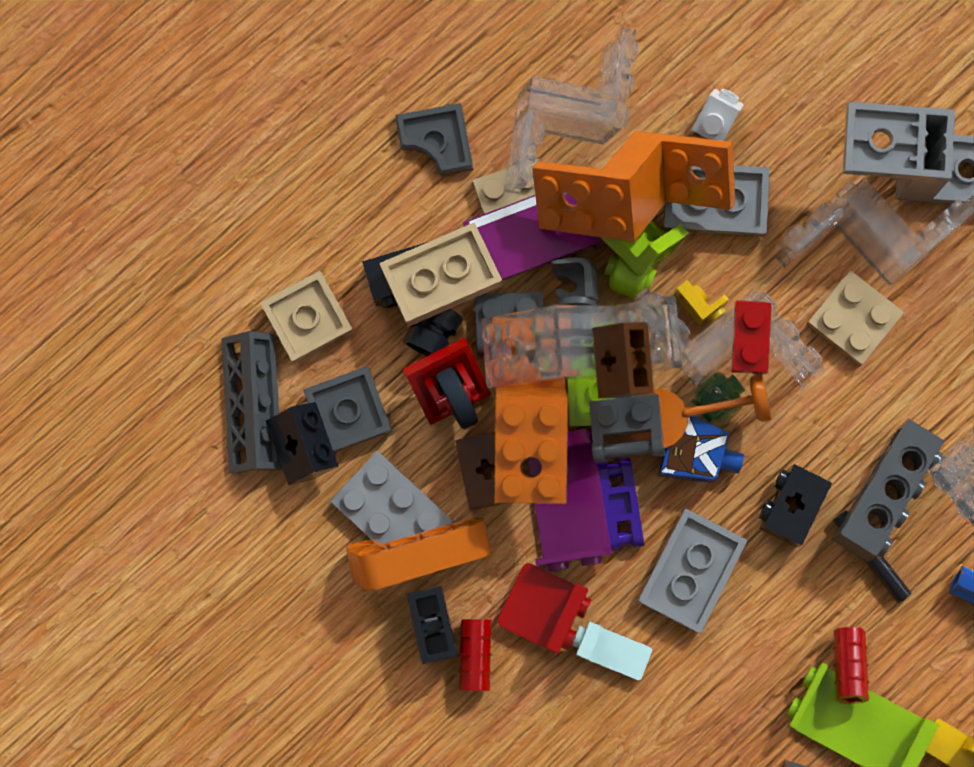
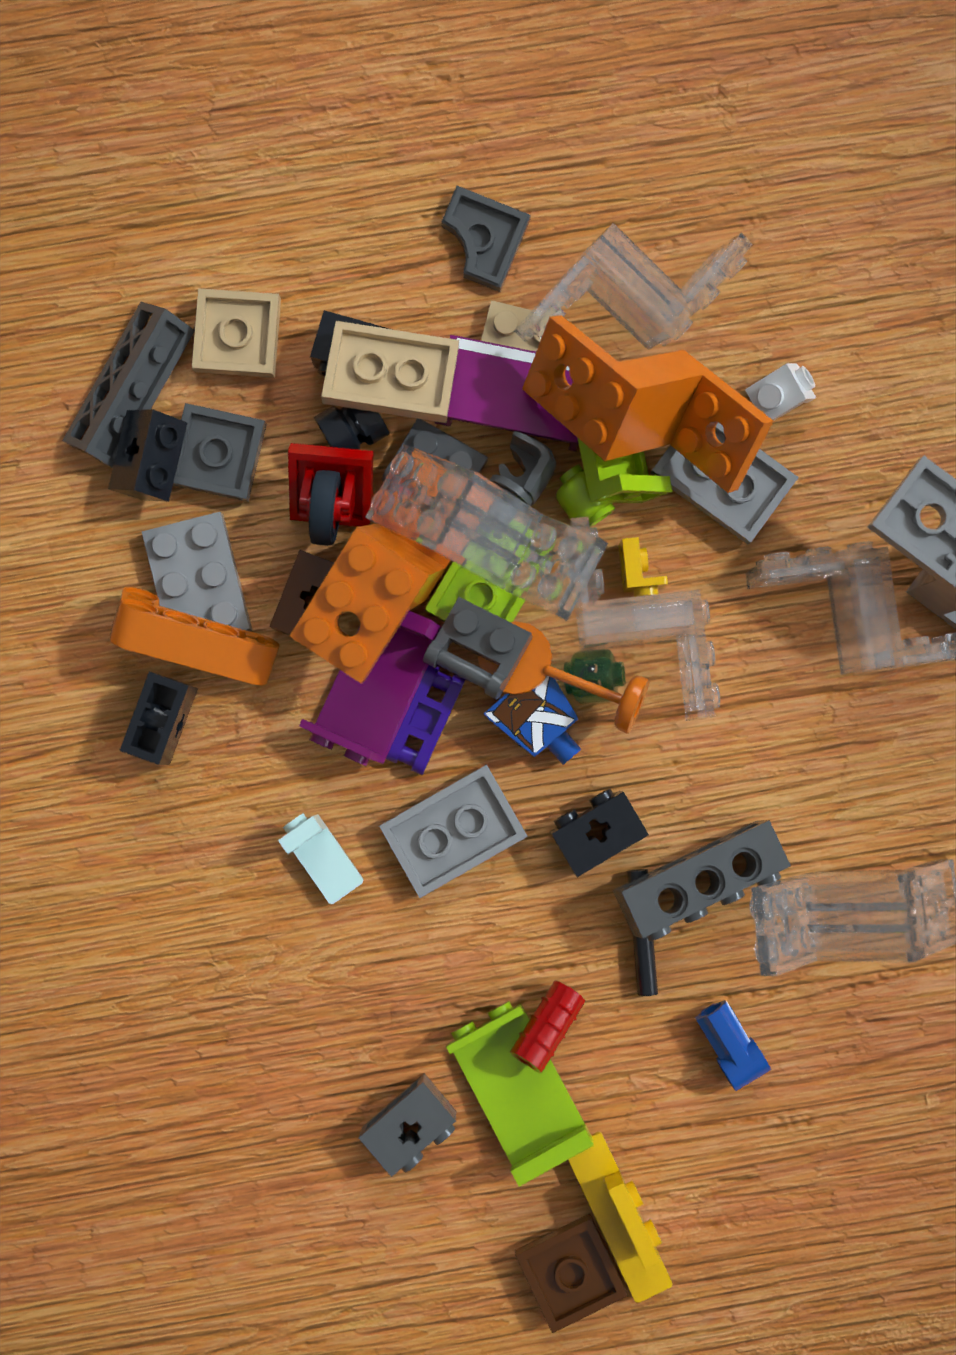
camera: 30 degrees right, 5 degrees up
(475, 654) = (185, 774): red axle -> none
(544, 608) = (282, 773): red bracket -> none
(623, 360) = (511, 574): reddish brown brick -> none
(751, 337) = (661, 636): red plate -> none
(855, 318) = (784, 684): tan plate -> none

